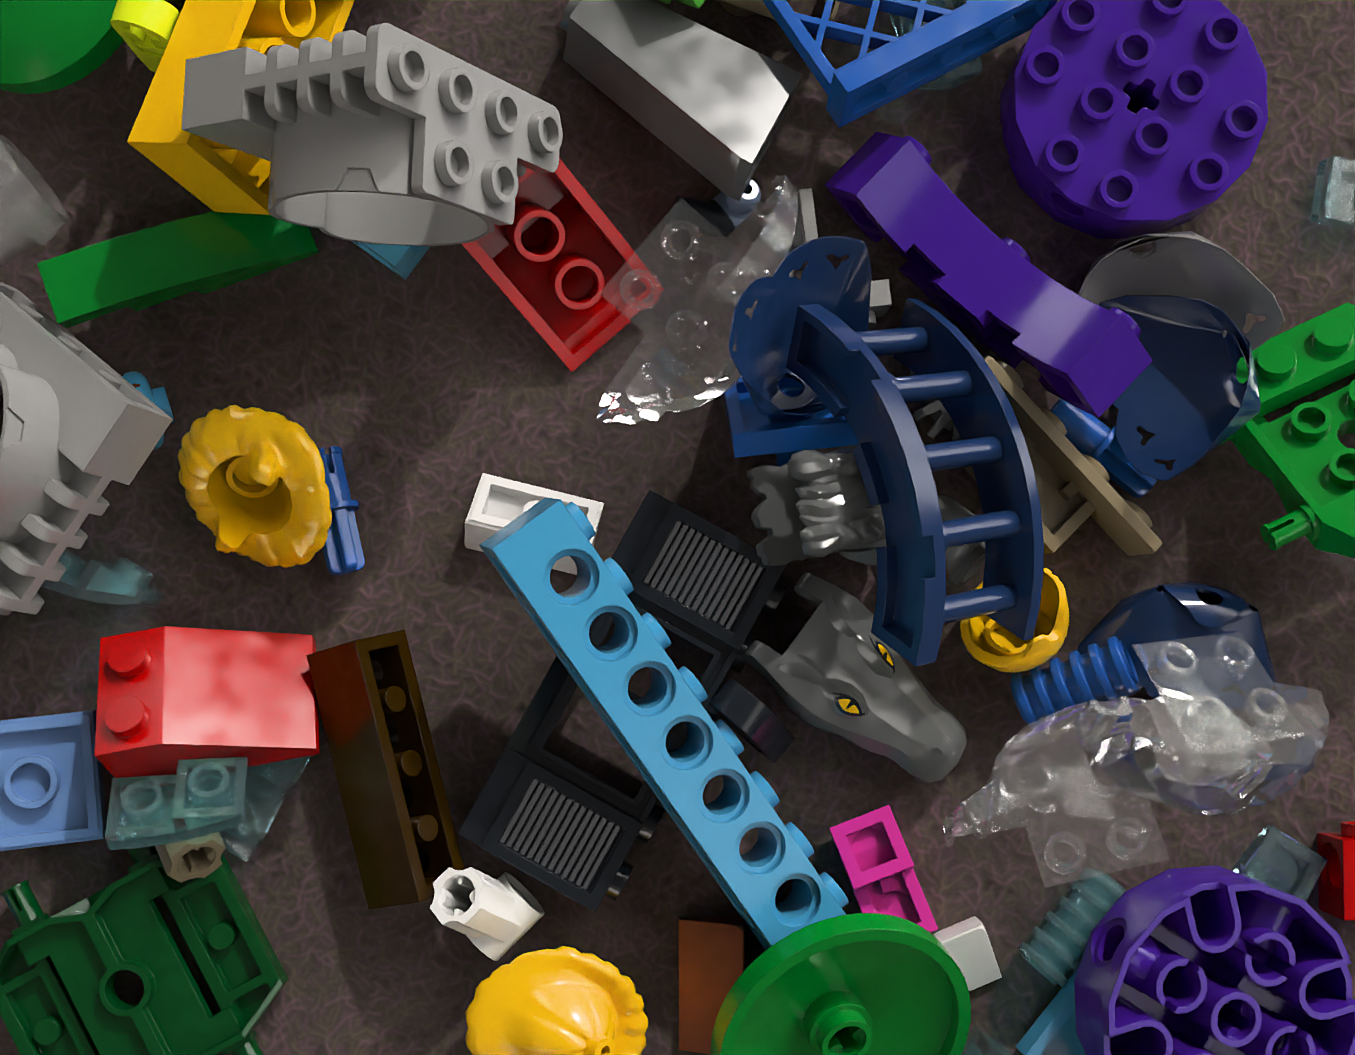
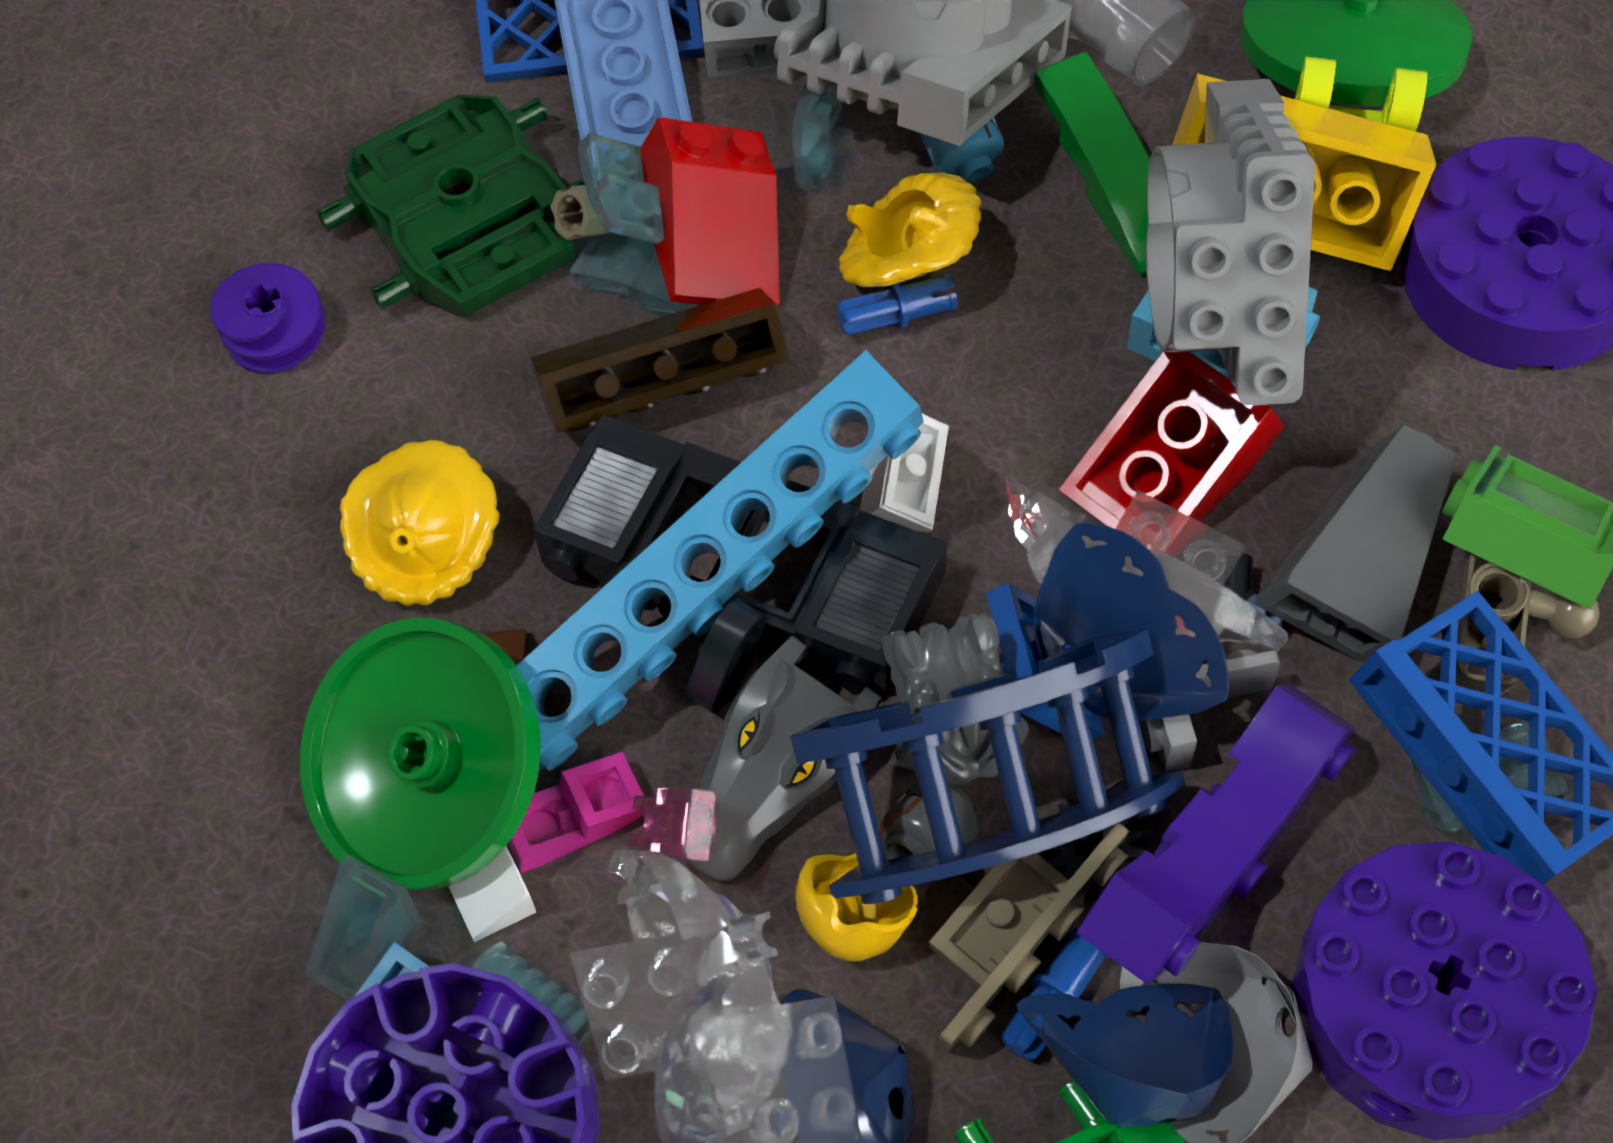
camera: 90 degrees right, 25 degrees down
(485, 909) = (528, 456): white piece -> none
(933, 778) = (677, 823): none -> clear pink plate
(1074, 680) = (797, 969): blue piece -> none

